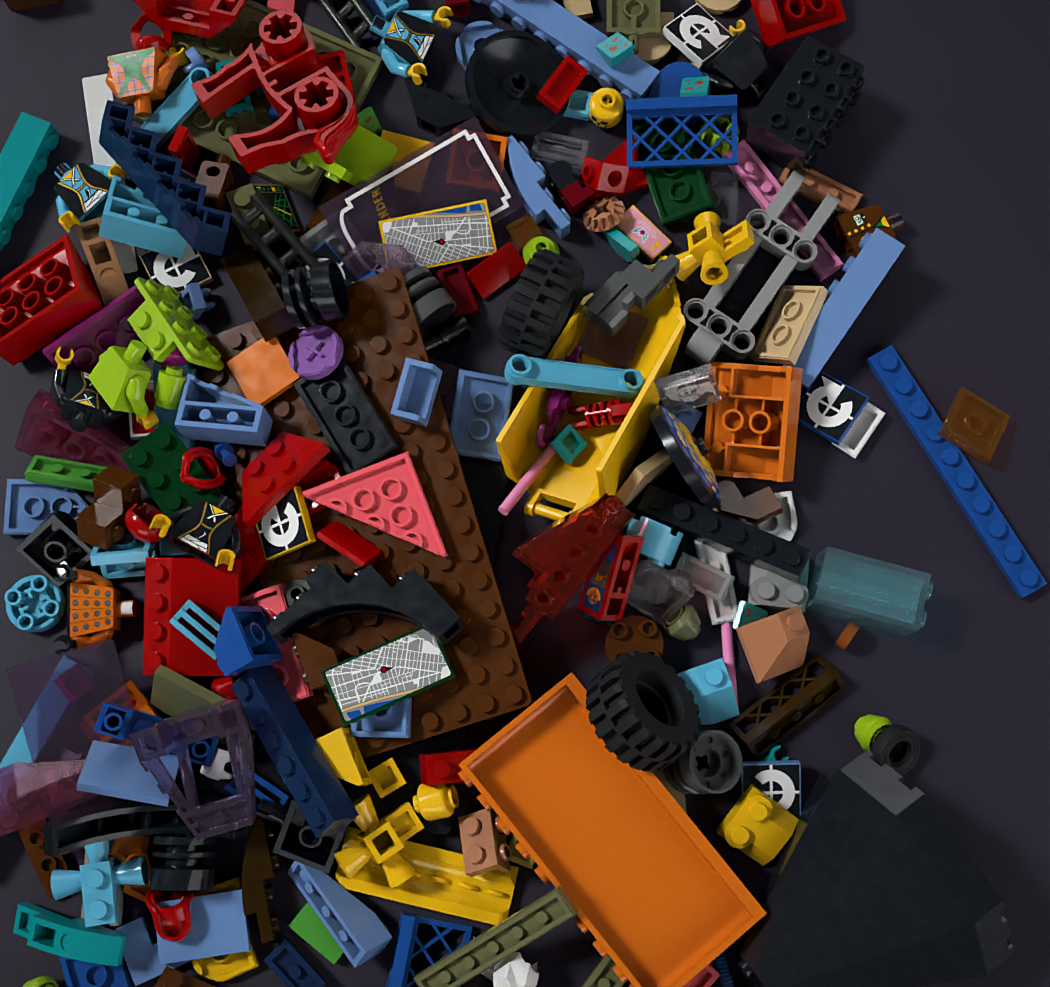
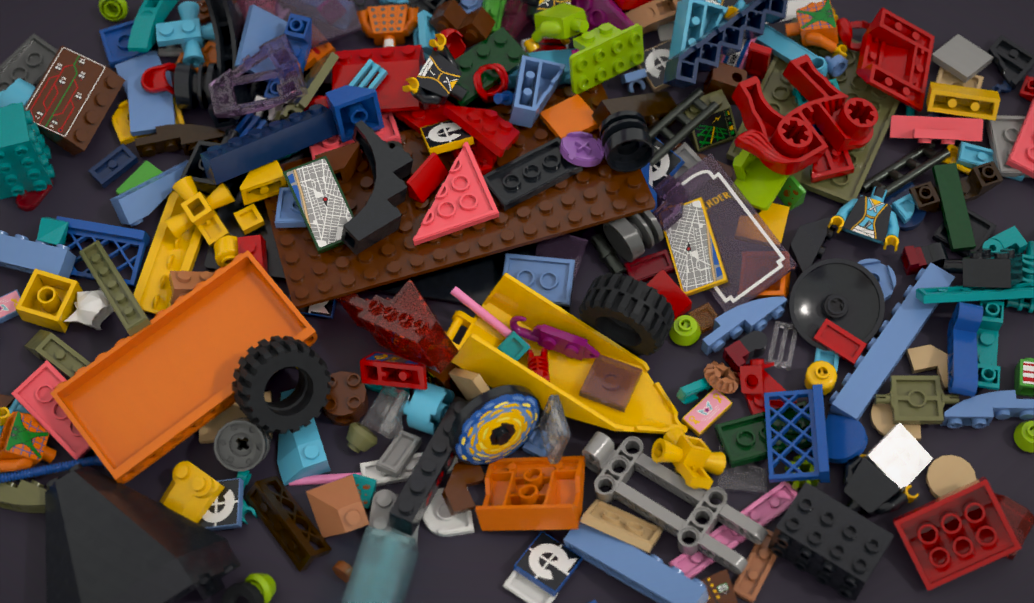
camera: 90 degrees right, 15 degrees down
(169, 387) = (556, 53): lime brick -> none
(416, 392) = (544, 213): medium blue panel -> none
(573, 376) = (566, 337): medium azure piece -> none
(615, 49) = (872, 379): teal slope -> none
(625, 290) = (646, 386): dark grey plate -> none
(695, 86) = (839, 445): teal slope -> none

